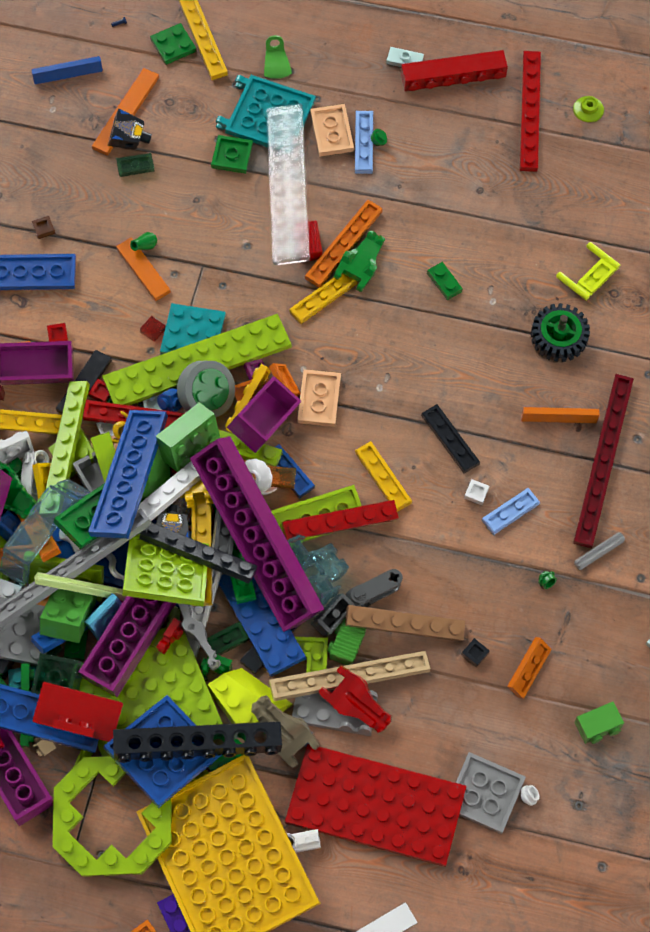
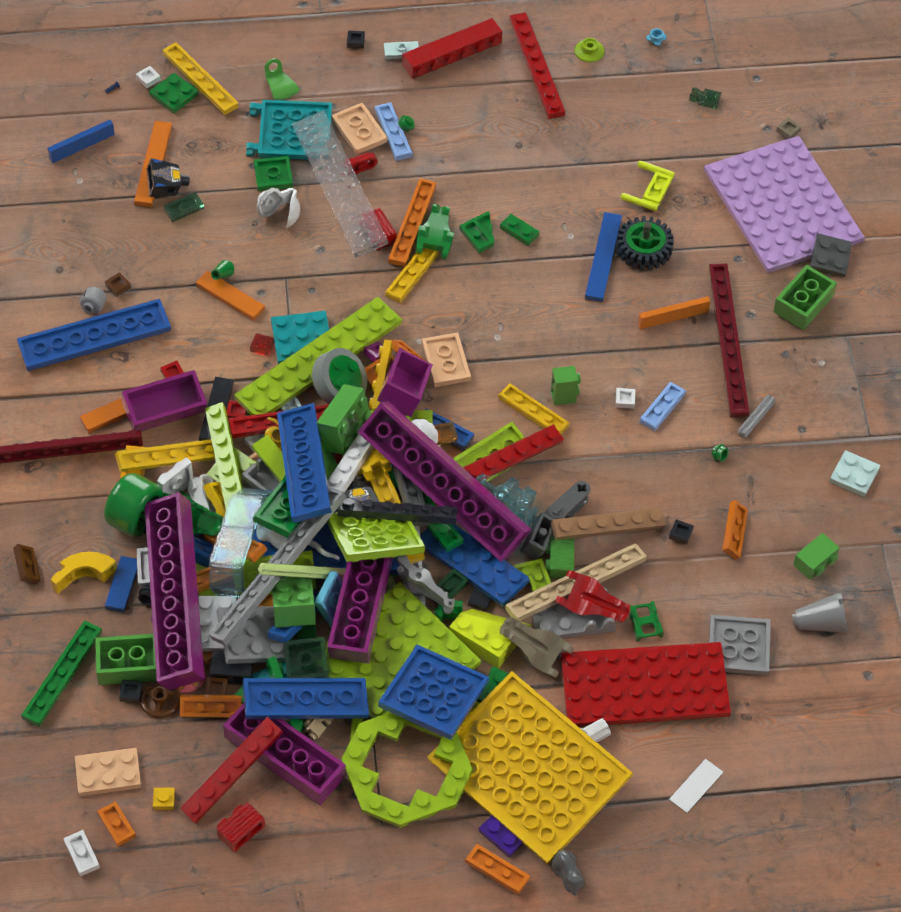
camera: 20 degrees left, 10 degrees down
(13, 237) = (93, 300): none -> light grey head
(77, 712) = (340, 681): red bracket -> none
(155, 21) = (148, 77): none -> white plate
(169, 400) = (307, 396): blue plate -> none
(171, 634) = (401, 588): red plate -> none
(187, 734) = (480, 664): black brick -> none
(217, 182) = (271, 200): none -> white animal
(319, 167) = (363, 162): none -> red plate
(365, 35) = (355, 39): none -> black plate
(400, 735) = (640, 621): none -> green piece
(404, 272) = (479, 232): none -> green wing
(420, 462) = (565, 385): none -> bright green brick
(450, 438) = (582, 361): black tile -> none
(514, 334) = (603, 257): none -> blue tile
(529, 795) = (779, 634): white plate -> none
(579, 790) = (822, 615): none -> light grey cone

